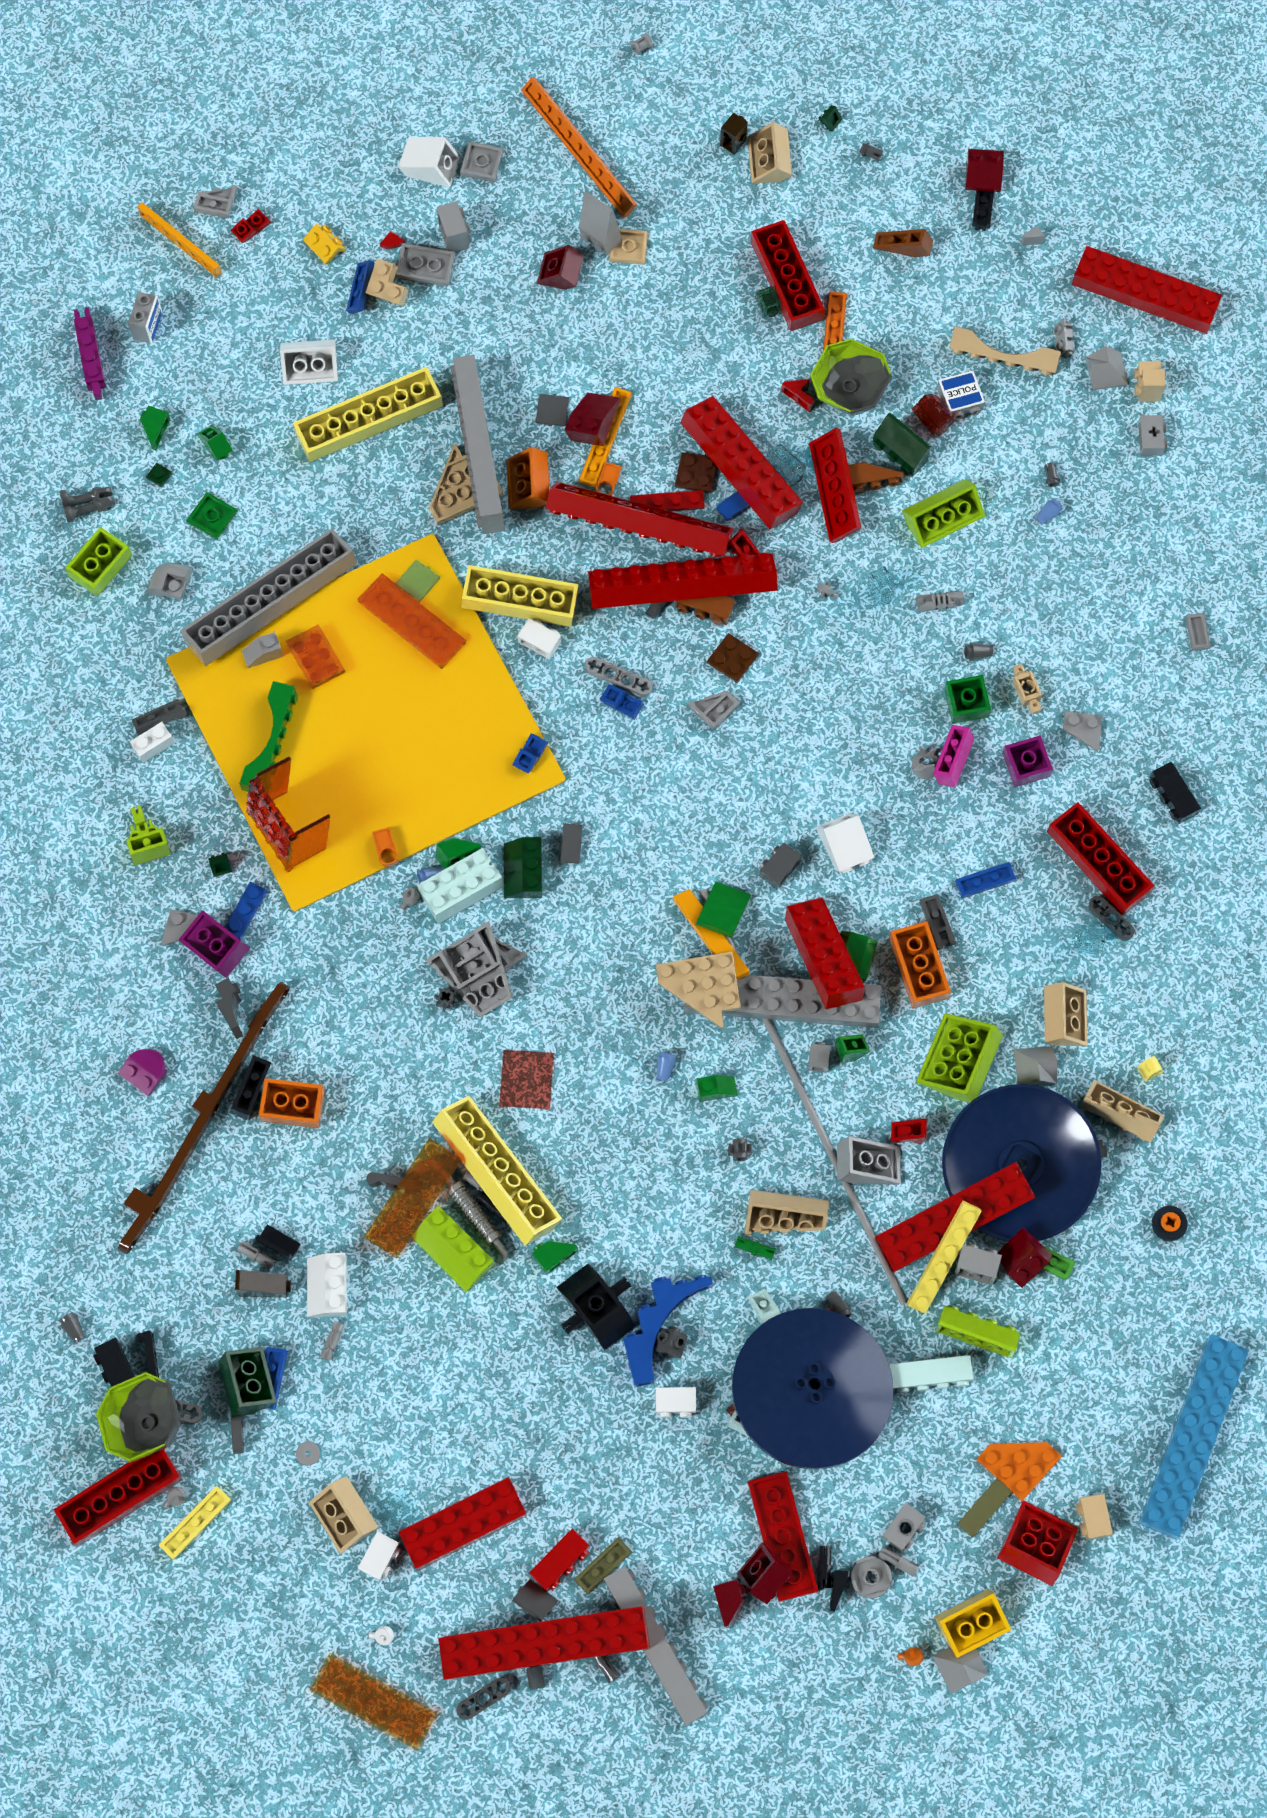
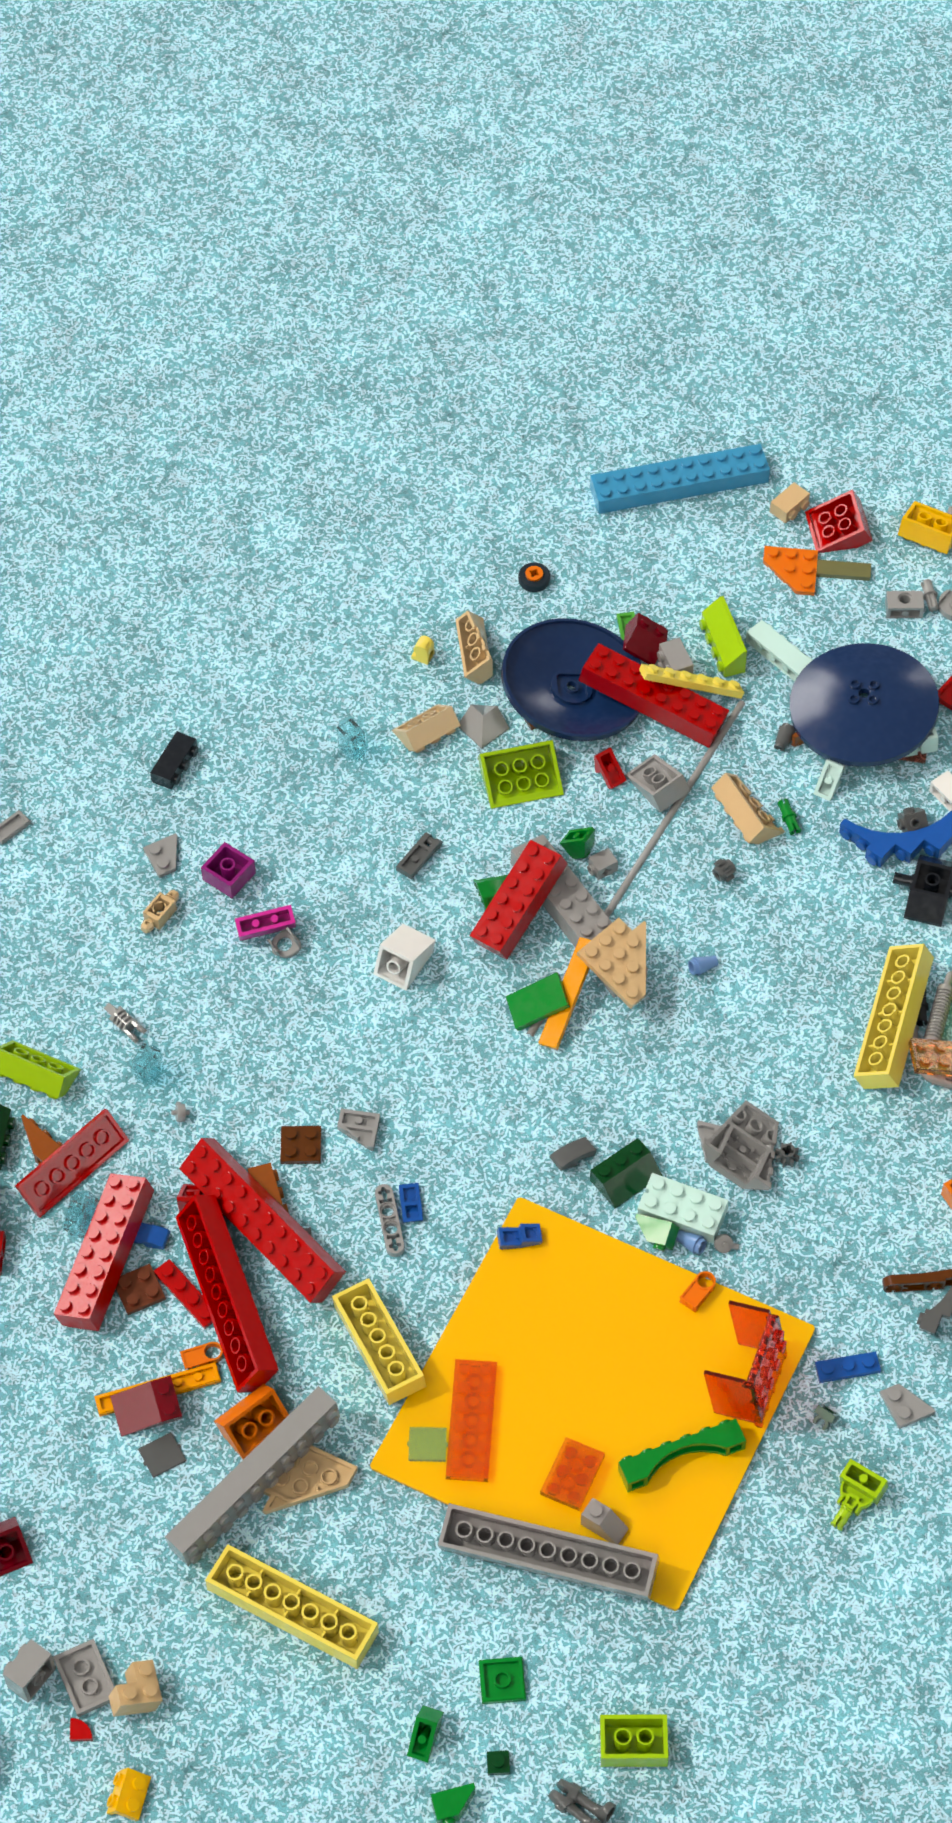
camera: 125 degrees left, 15 degrees down
(152, 742) = (766, 1555): white brick -> none
(161, 714) = (738, 1570): dark grey plate -> none
(170, 580) = (598, 1665): light grey brick -> none
(214, 944) = (900, 1362): magenta slope -> none
(309, 362) = (272, 1708): white slope -> none
(360, 283) = (154, 1720): blue plate -> none
(526, 1079) = (798, 1056): clear red piece -> none
(539, 638) = (405, 1304): white brick -> none
(553, 1254) = (916, 935): green slope -> none
(715, 1087) = (690, 918): green slope -> none
(780, 865) = (464, 986): dark grey brick -> none
(919, 965) = (468, 840): orange brick -> none
(967, 699) = (205, 943): green brick -> none
(977, 651) = (151, 967): dark grey cone -> none
(985, 880) = (355, 843): blue plate -> none
(1100, 858) = (274, 774): red brick -> none
(1125, 924) = (315, 738): dark grey beam -> none

